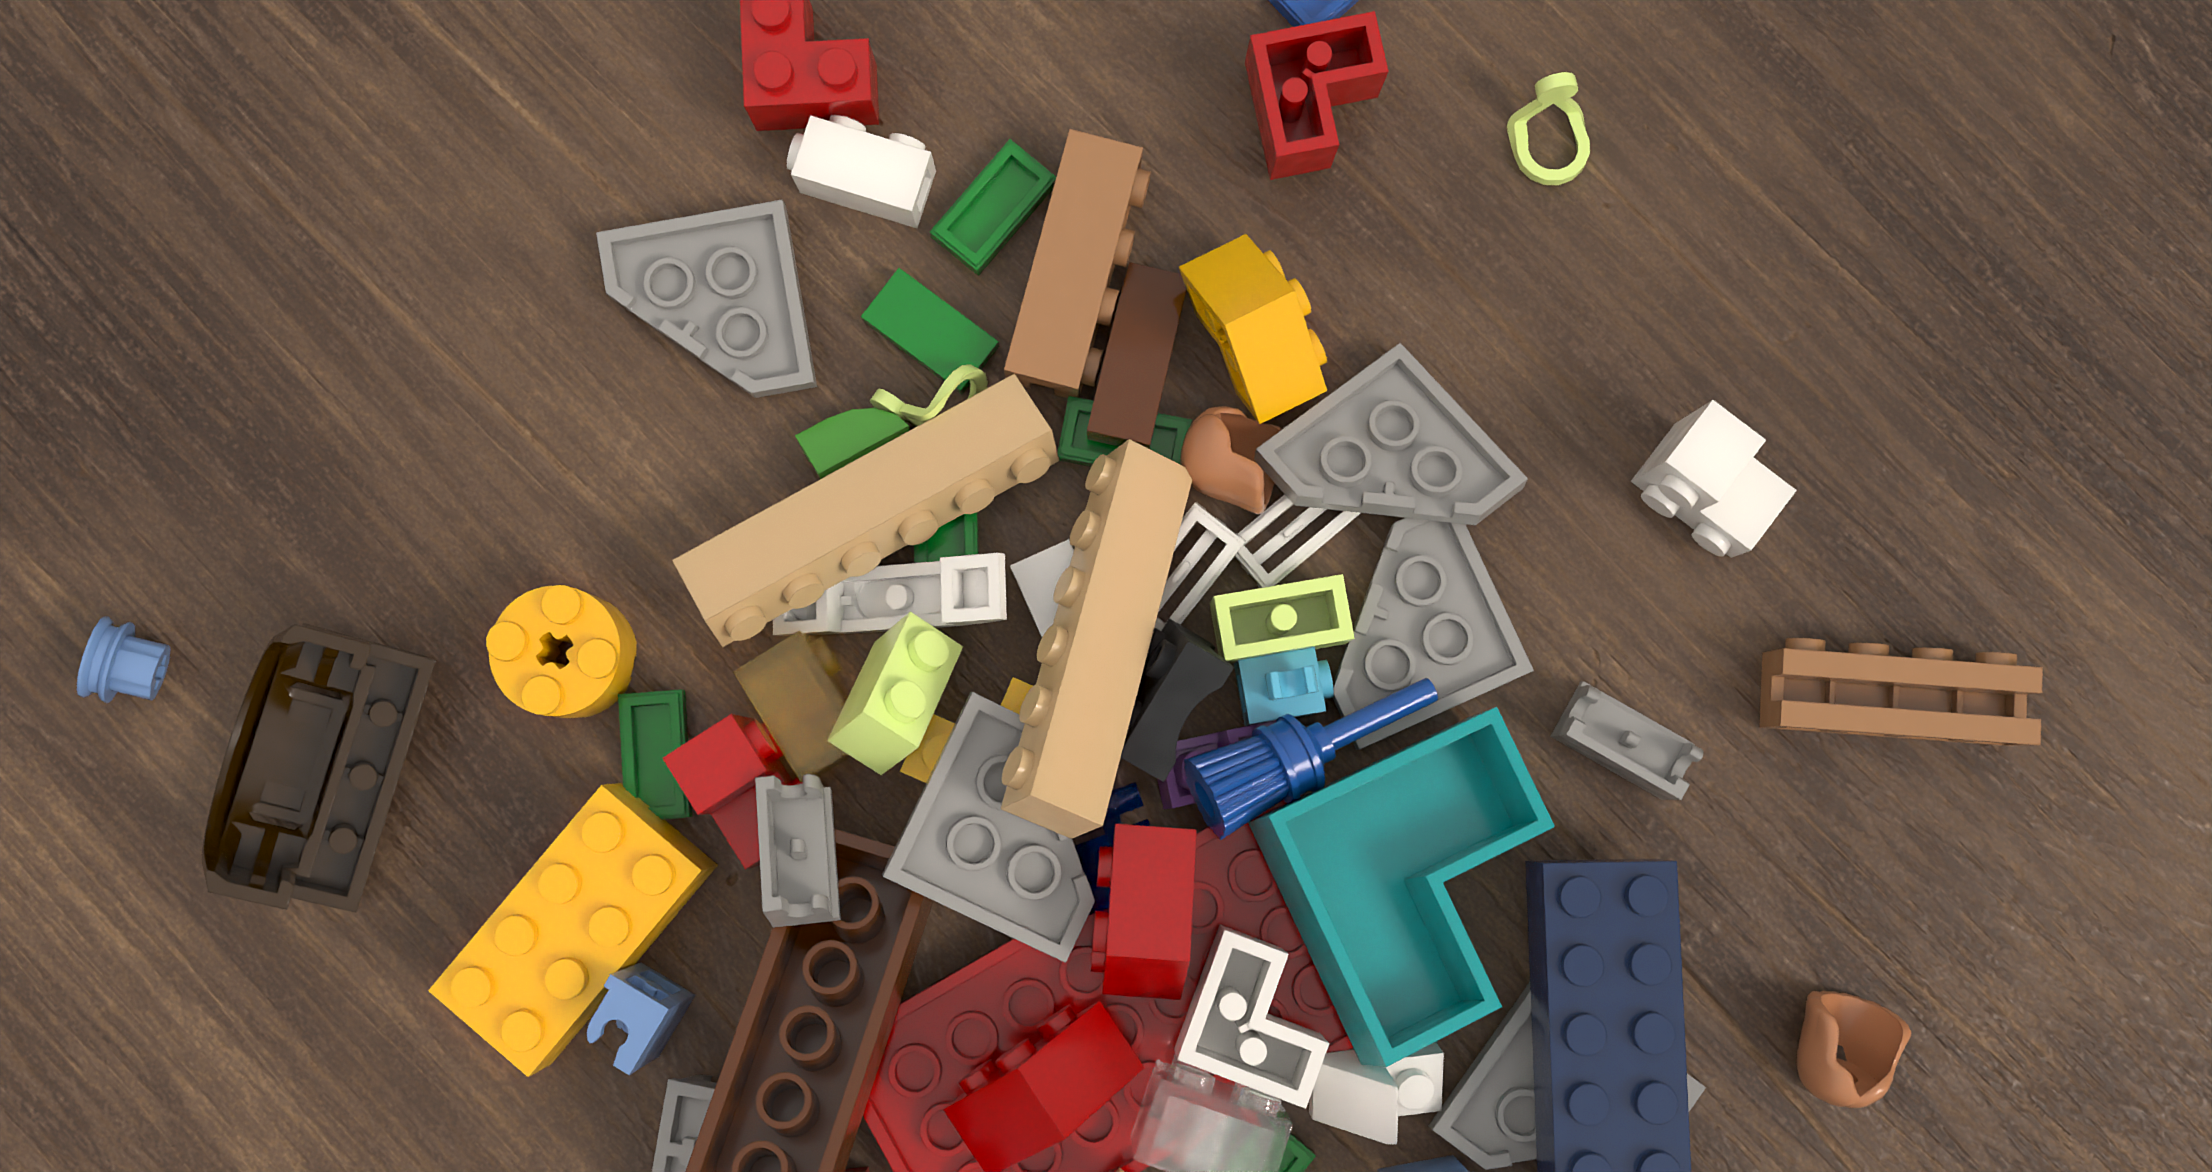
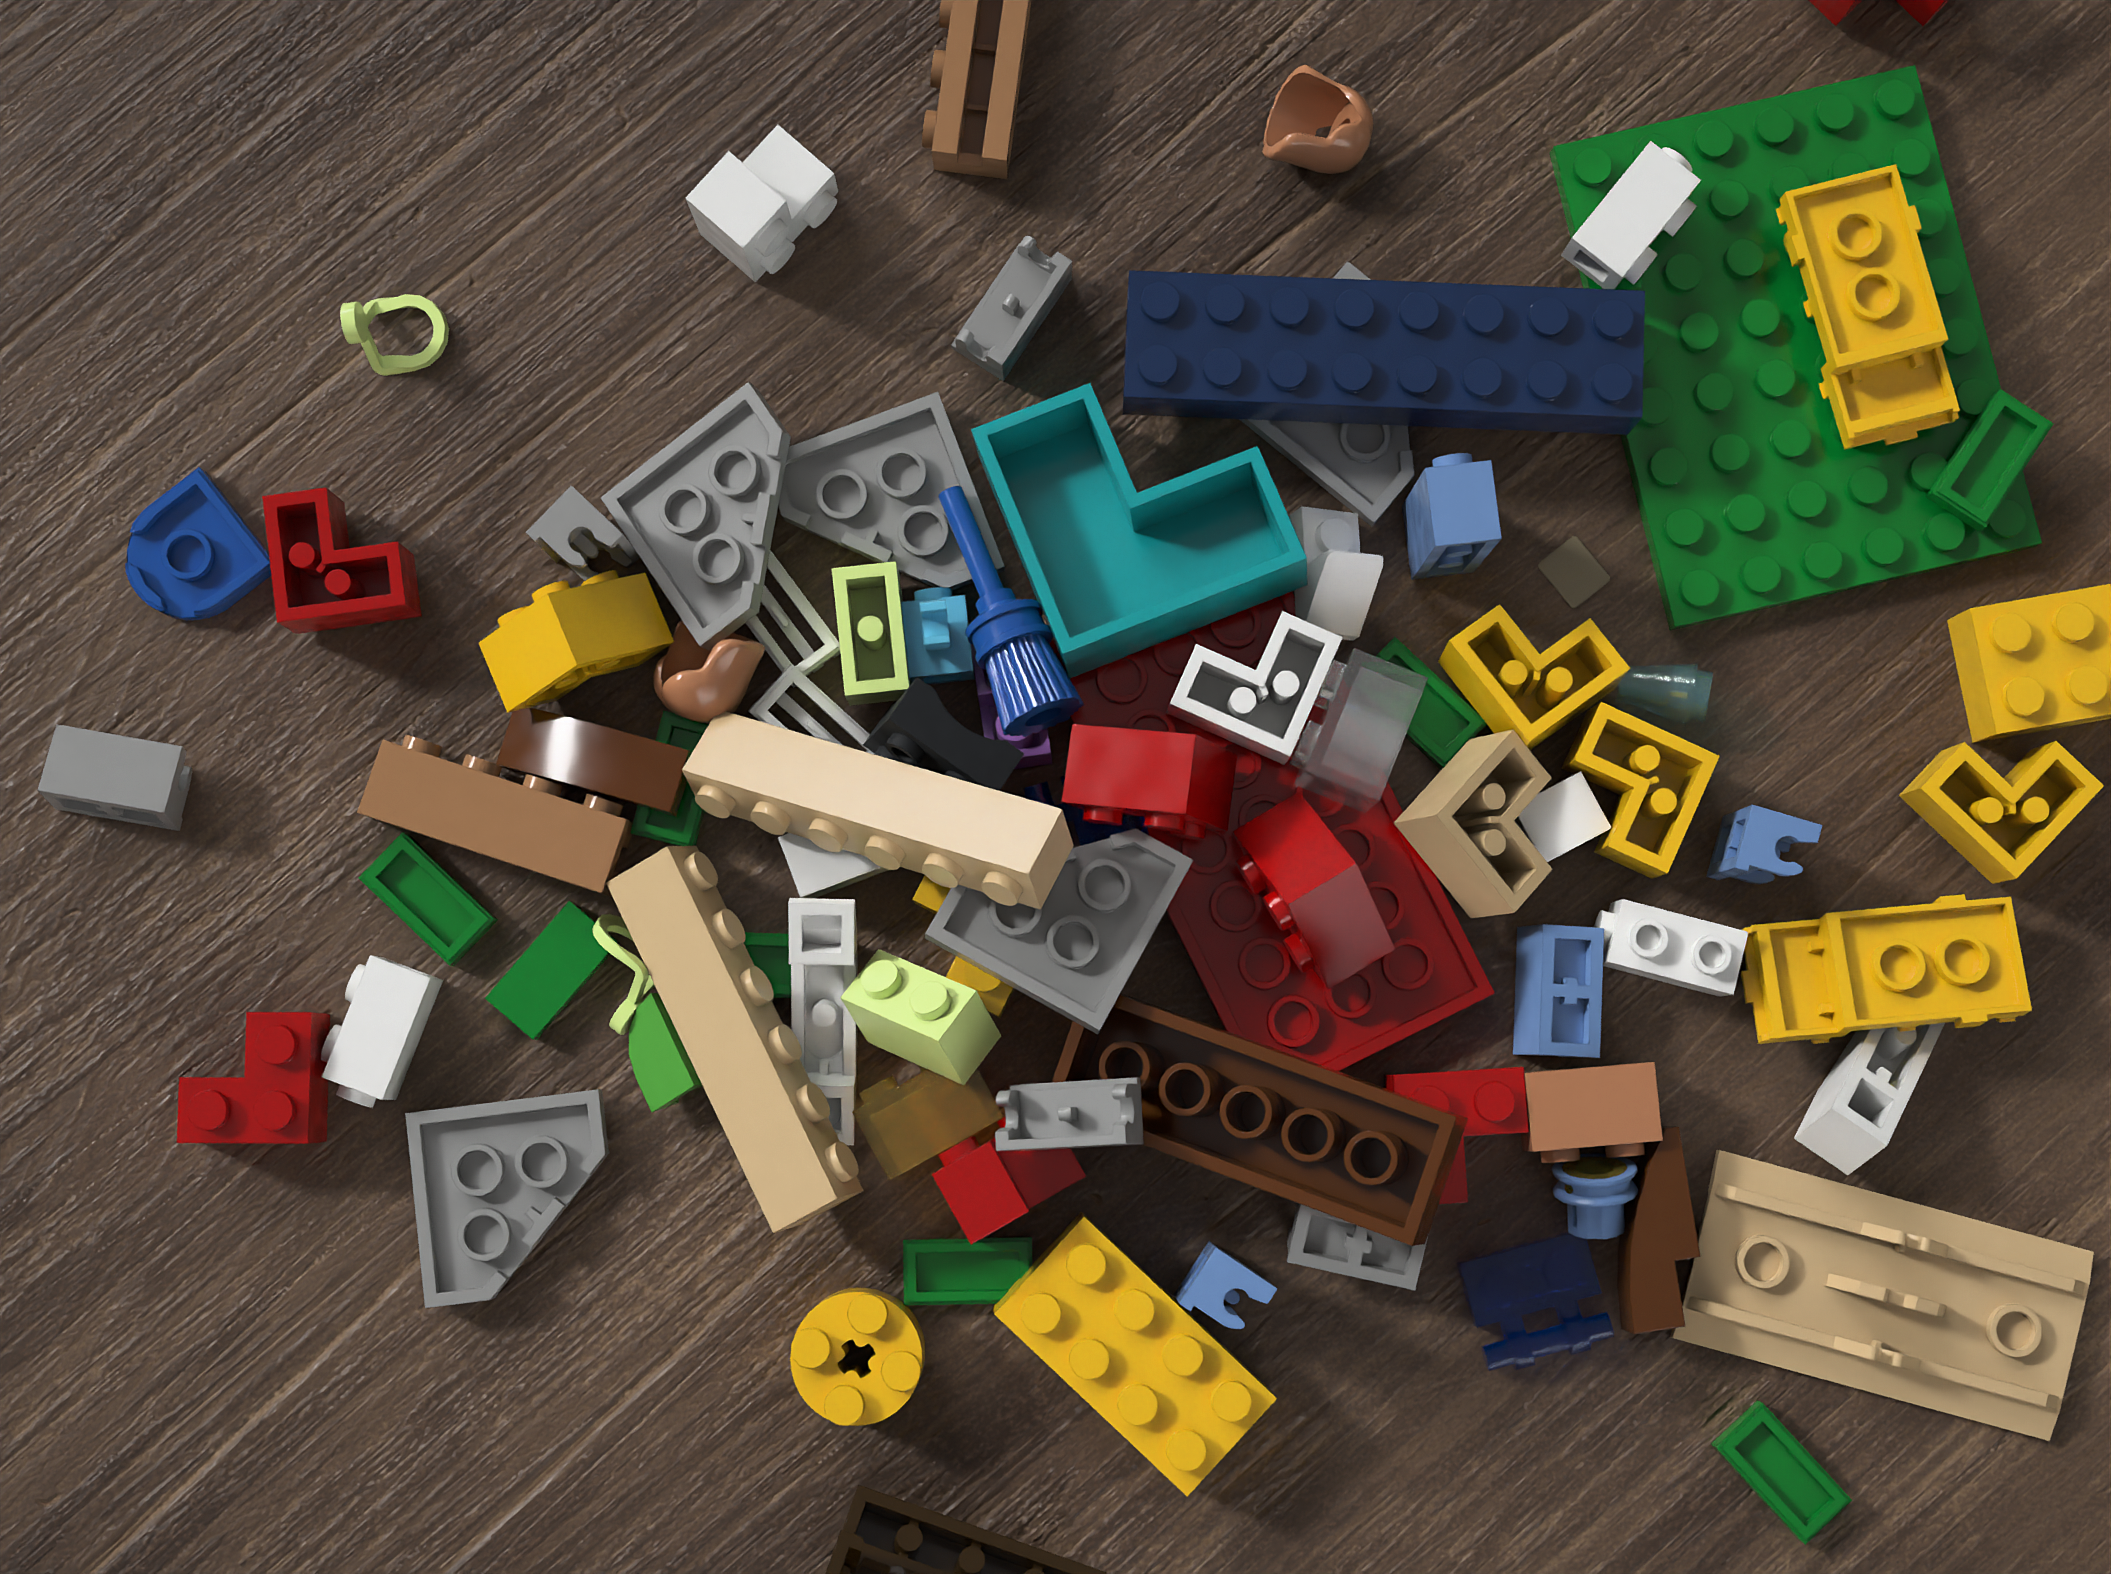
camera: 85 degrees left, 0 degrees up
(1362, 318) = (576, 531): none -> light grey hinge

